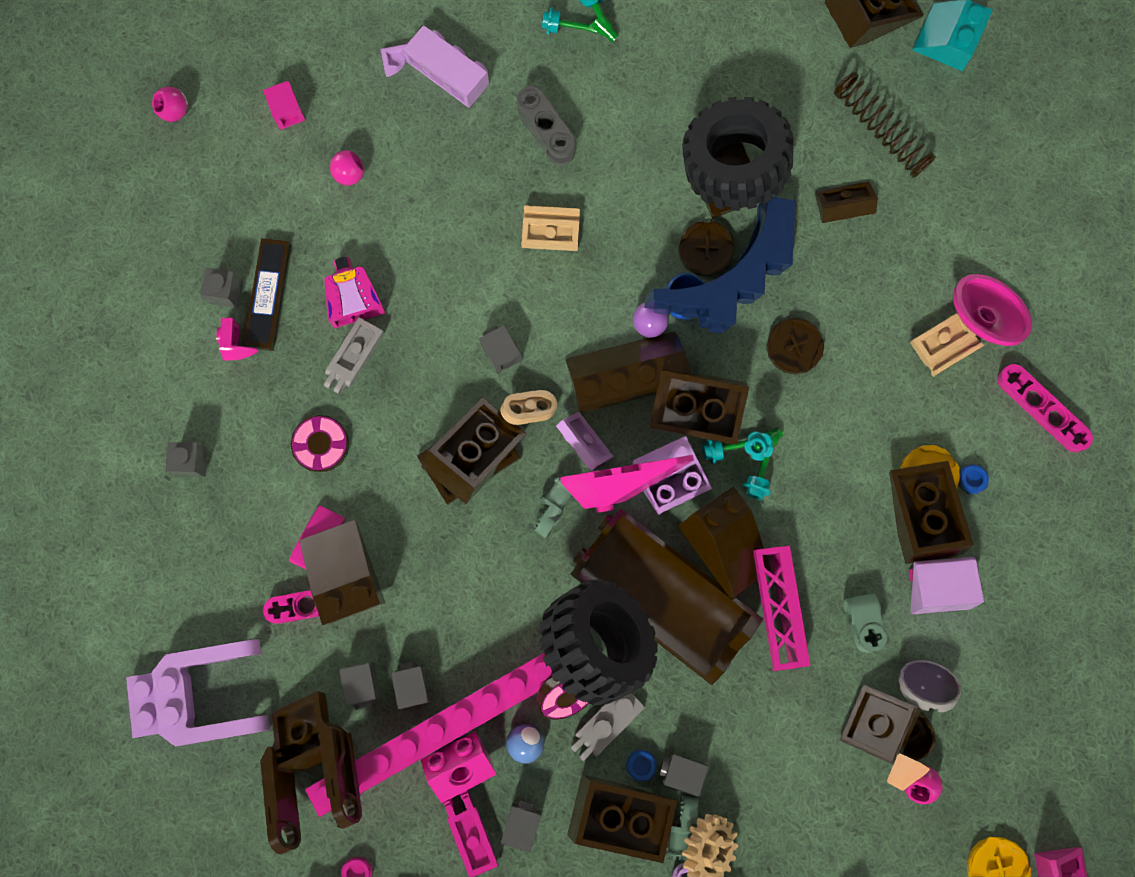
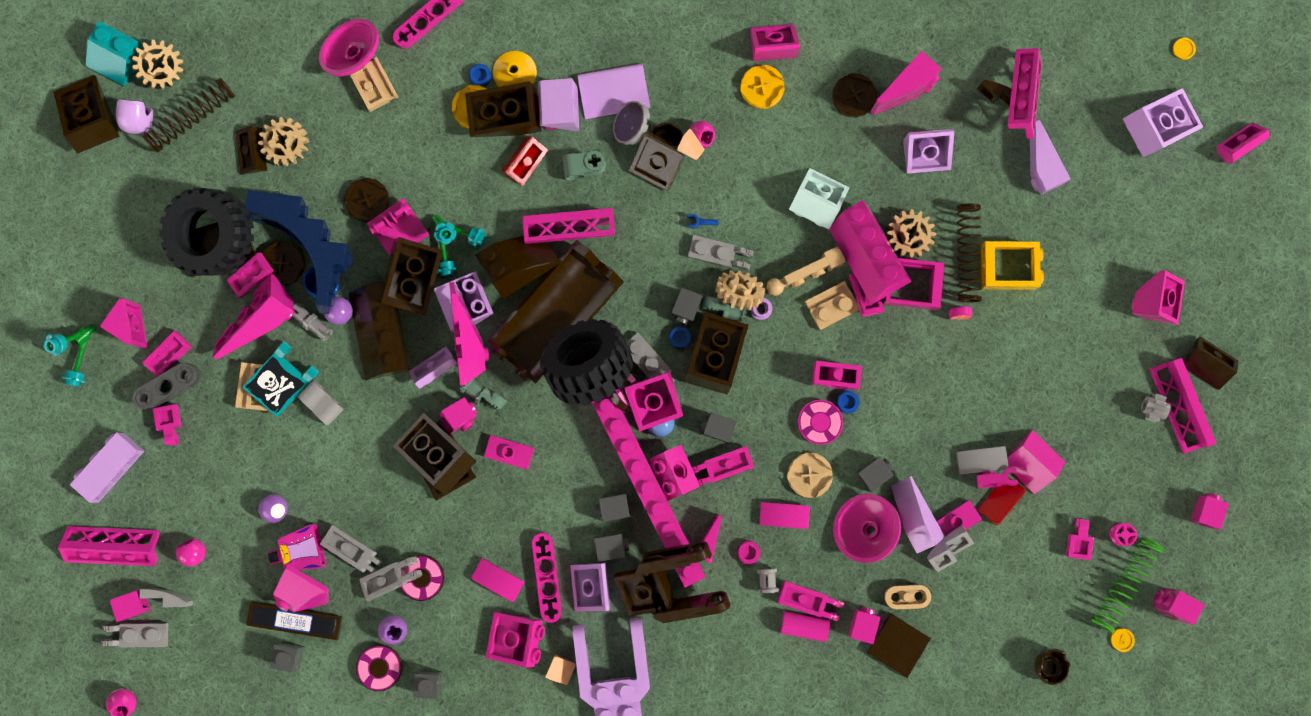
camera: 90 degrees left, 5 degrees up
(204, 626) = (560, 670): none -> light nougat slope
(209, 399) = (379, 667): none -> tile
(228, 338) = (328, 652): dark pink plate -> none
(241, 566) = (515, 639): none -> dark pink plate
(250, 117) = (138, 635): none -> light grey hinge
(254, 404) = (388, 626): none -> medium lavender piece
(293, 149) = (170, 598): none -> light grey slope
(298, 294) = (299, 591): none -> dark pink slope
(307, 660) = (590, 587): none -> lavender slope
(316, 402) = (388, 579): none -> light grey hinge
(340, 573) = (524, 559): dark brown slope -> none
(345, 77) = (106, 550): none -> dark pink fence
(377, 821) = (711, 535): none -> dark pink slope
(393, 59) = (95, 512): lavender tile -> none
(402, 259) = (273, 508): none -> medium lavender piece
(480, 545) = (509, 452): none -> dark pink plate
(500, 348) = (353, 431): dark grey brick -> none
(505, 129) = (166, 420): none -> dark pink plate
(523, 477) = (458, 416): none -> dark pink brick
(526, 406) = (402, 412): tan plate -> none
(534, 306) = (320, 402): none -> light grey axle
(552, 736) = (654, 401): none -> dark pink slope
(557, 254) = (278, 381): none -> flag
(586, 123) = (167, 353): none -> dark pink plate
(619, 72) = (126, 323): none -> dark pink slope
(634, 287) = (311, 322): none -> light grey pin
(642, 234) = (265, 313): none -> dark pink wedge
(688, 211) = (250, 275): none -> dark pink plate
(760, 814) = (718, 252): none -> light grey hinge
(768, 386) = (397, 222): none -> dark pink hinge
(801, 789) = (701, 221): none -> blue hand
(861, 226) = (291, 139): none -> tan gear
(865, 544) = (524, 160): none -> red slope
(874, 59) = (132, 116): none -> lavender helmet
(956, 89) = (149, 76): none -> tan gear
(972, 653) = (610, 89): none -> lavender piece
(996, 535) = (520, 60): none -> yellow dish

